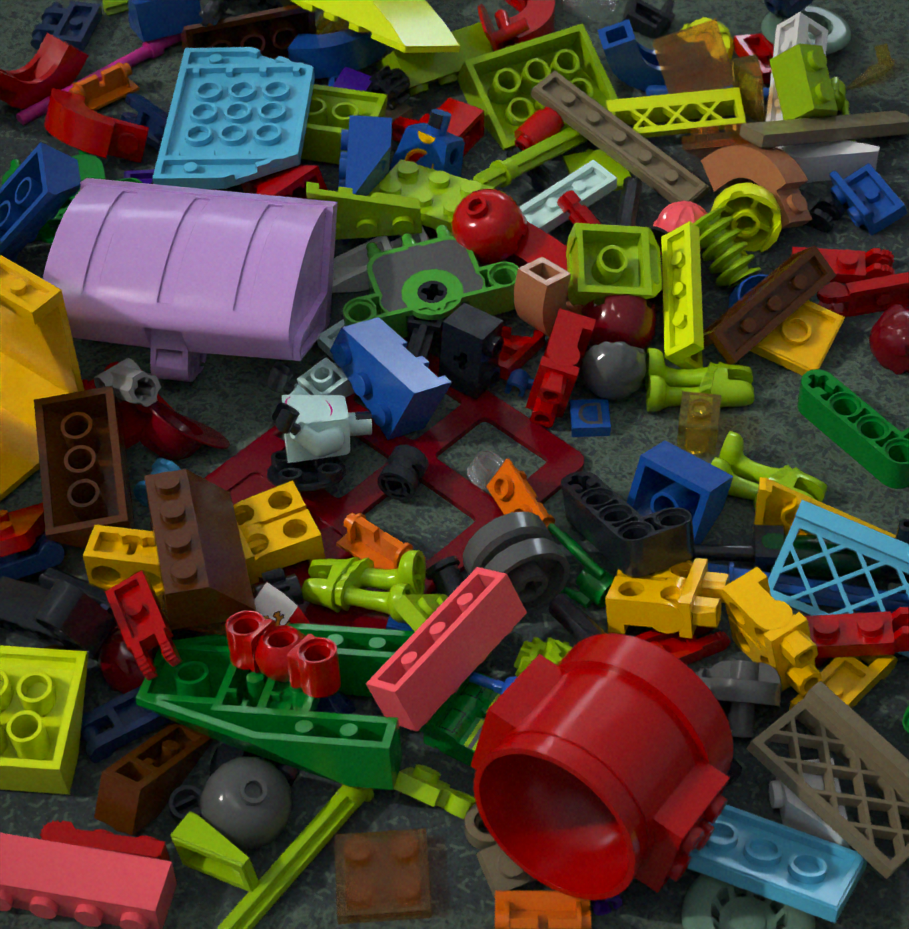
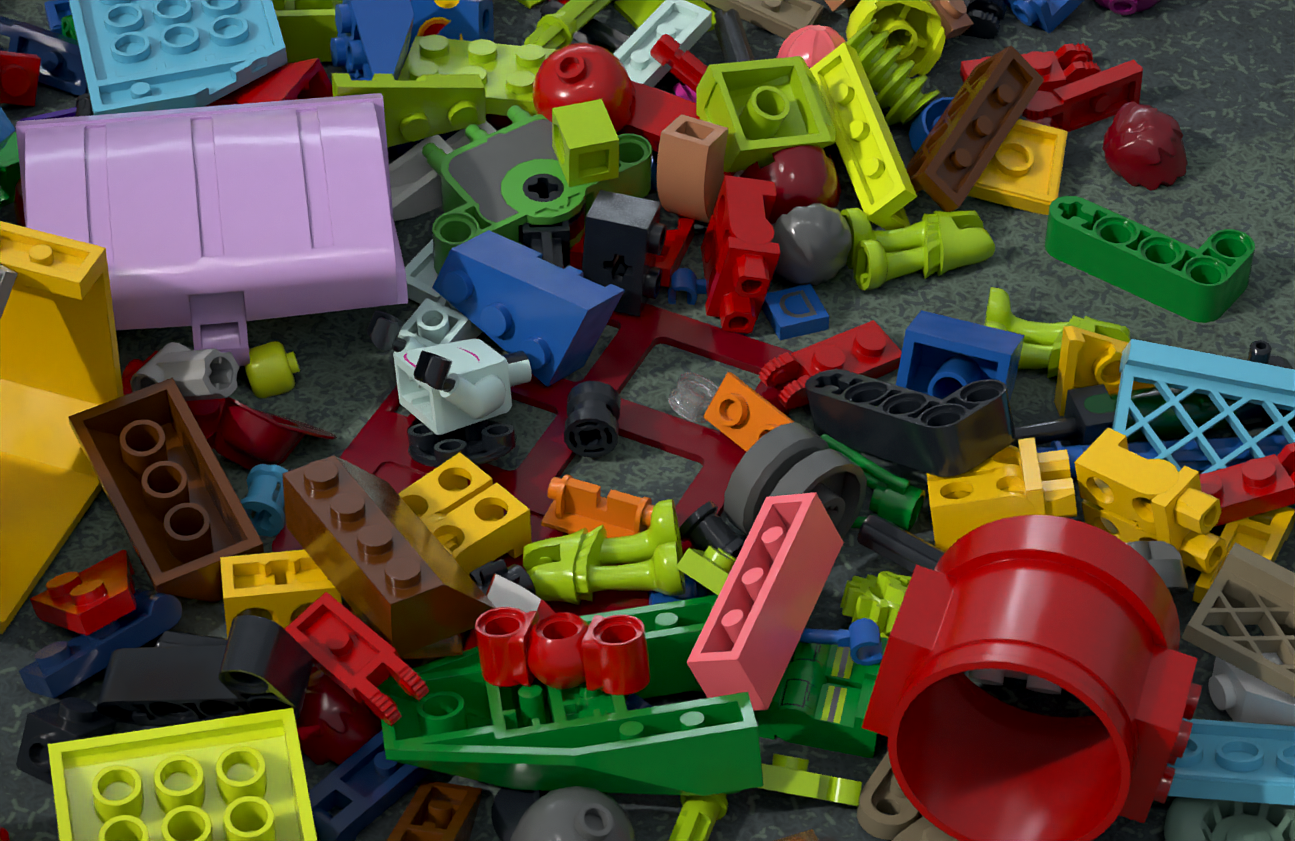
camera: 20 degrees left, 5 degrees down
(206, 387) = (271, 370): none -> neon yellow piece
(468, 264) = (585, 142): none -> lime brick
(610, 462) = (859, 350): none -> red hinge
(698, 430) = (939, 283): clear yellow brick -> none

